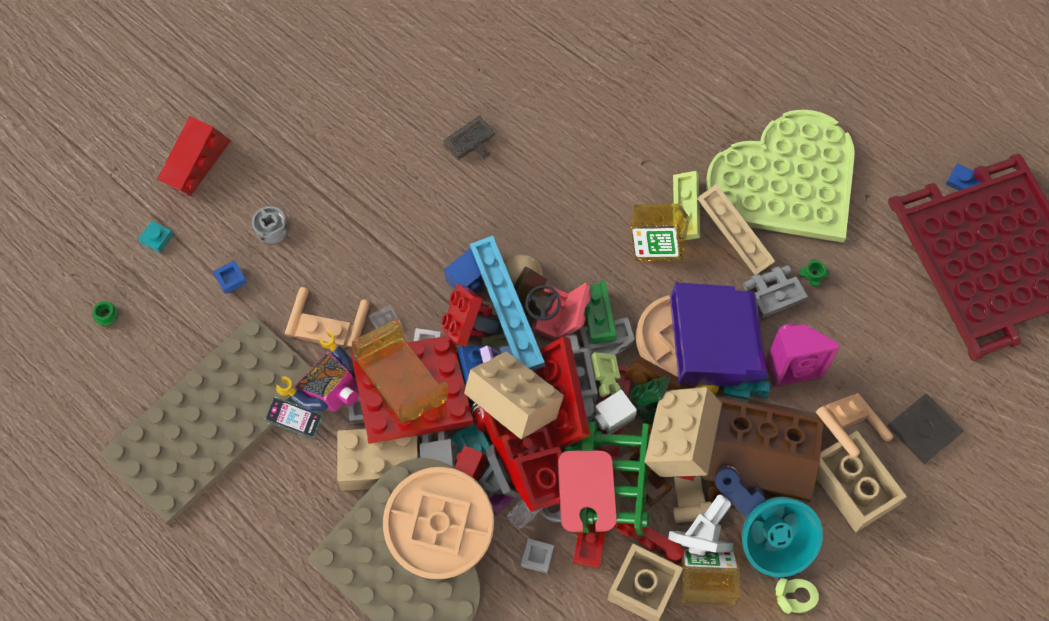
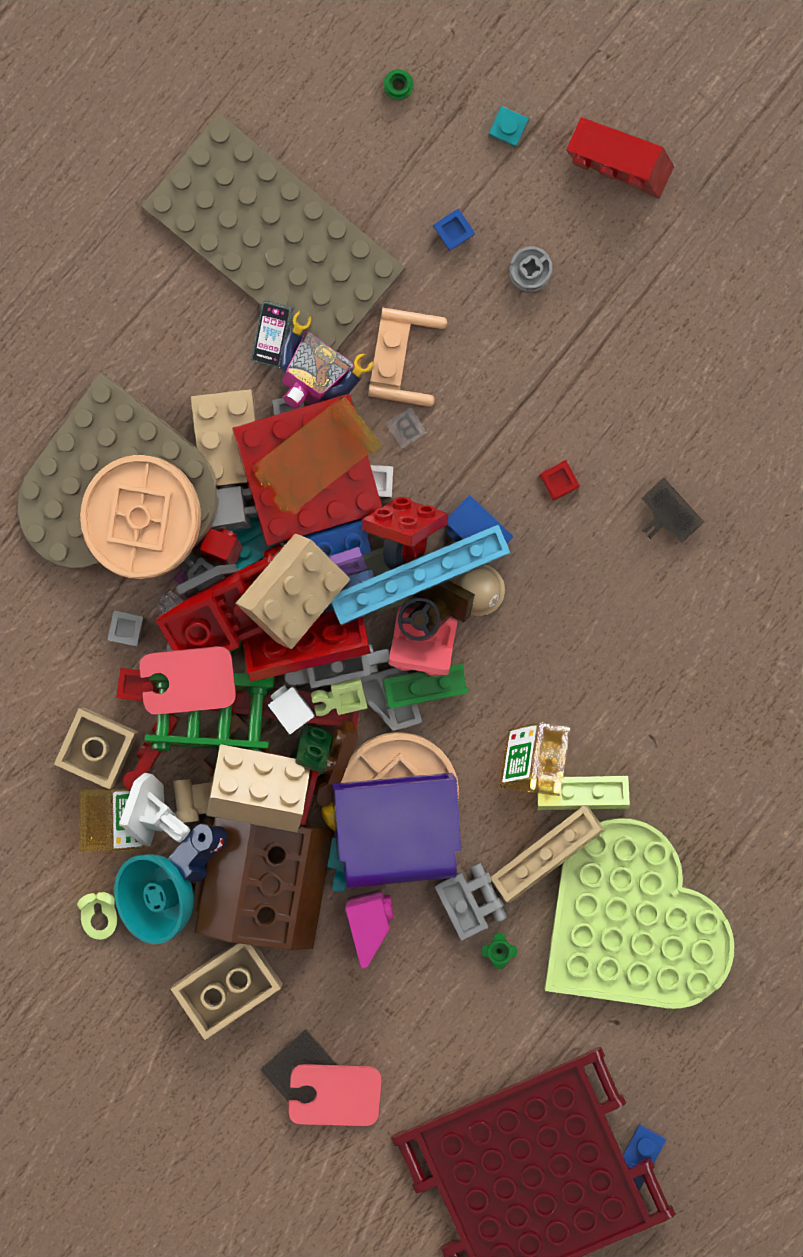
camera: 85 degrees right, 25 degrees up
(439, 214) = (559, 480): none -> red tile
(848, 412) = (305, 977): light nougat plate -> none
(944, 394) = (343, 1095): none -> coral piece

